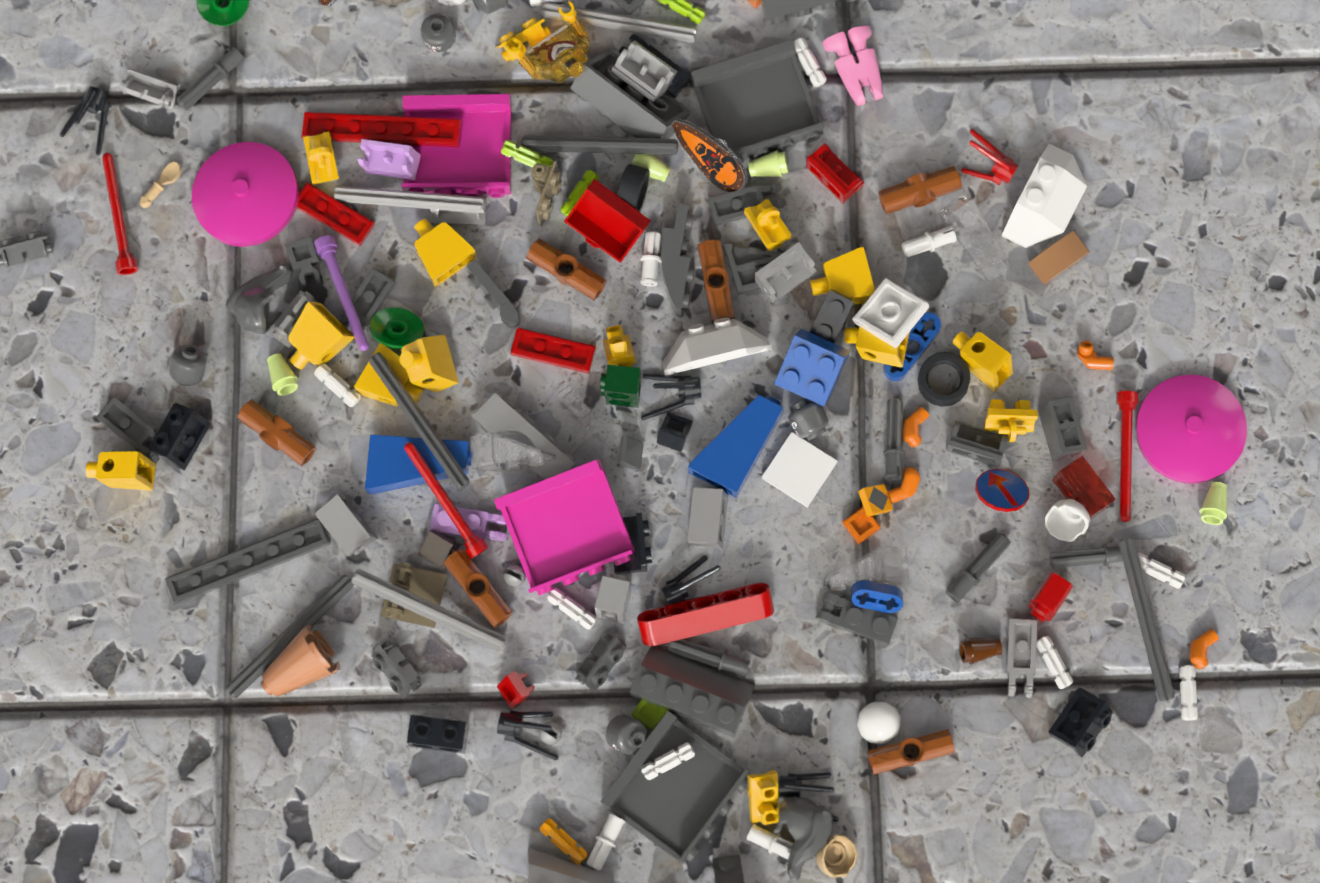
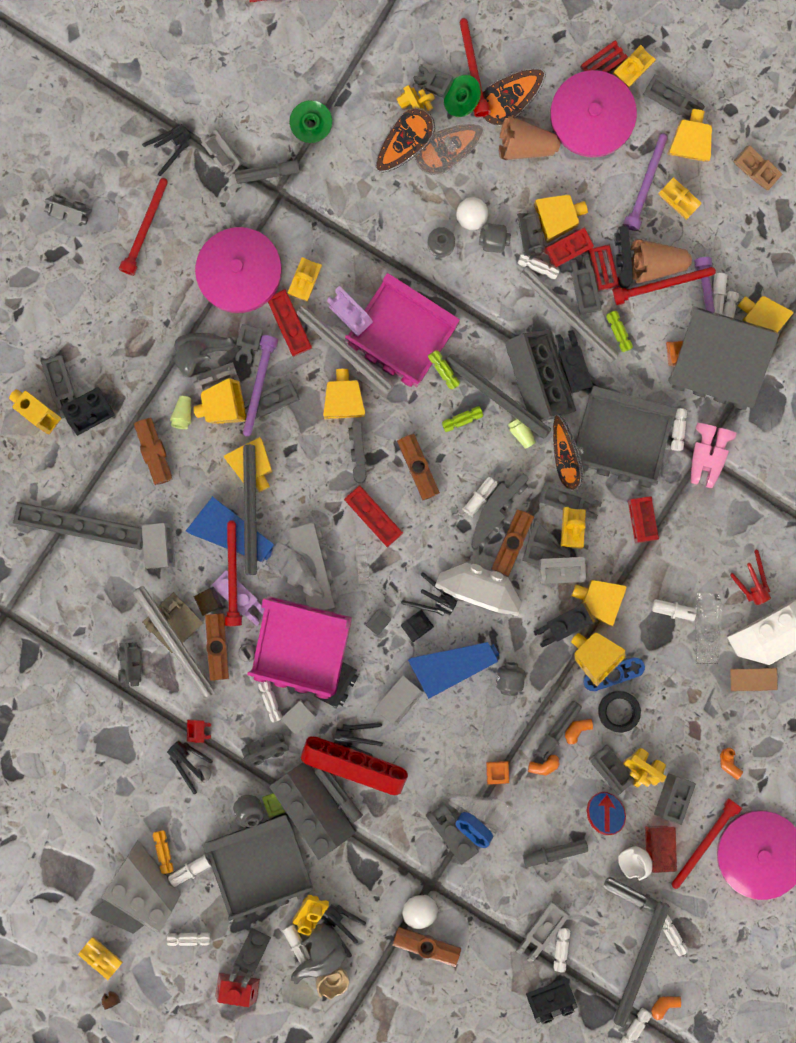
camera: 25 degrees right, 10 degrees up
(168, 176) = (196, 222): tan piece -> none
(187, 365) = (123, 365): dark grey head -> none
(300, 663) = (68, 621): nougat cone -> none
(308, 617) = (74, 595): dark grey axle -> none
(337, 385) = (214, 444): white axle -> none
(389, 129) = (359, 286): red tile -> none
(396, 327) = (282, 426): green dish -> none
(429, 363) = (283, 472): yellow torso -> none
(437, 734) = (126, 727): black brick -> none
(531, 32) = (504, 283): yellow hinge -> none
(546, 182) = (446, 400): dark tan hinge -> none
(558, 54) = (512, 313): clear yellow torso -> none
(607, 221) = (466, 454): red container -> none
(618, 347) = (416, 546): yellow hips -> none
(621, 386) = (400, 574): dark green brick -> none
(634, 185) = (497, 443): black tyre -> none
(644, 71) = (561, 364): light grey hinge -> none
(667, 761) = (264, 846): white axle -> none
(769, 165) = (603, 485): yellowish green cone -> none
(799, 469) = (482, 708): white tile -> none
(812, 367) = (536, 647): brick -> none
(875, 500) = (518, 763): light orange tile -> none
(890, 313) = (613, 647): white tile -> none
(920, 190) = (692, 570): dark orange piece -> none
(979, 649) = (517, 908): reddish brown cone -> none
(985, 359) = (658, 725): yellow torso -> none
(1049, 597) = (586, 909): red brick -> none
(1215, 504) = (741, 917): yellowish green cone -> none

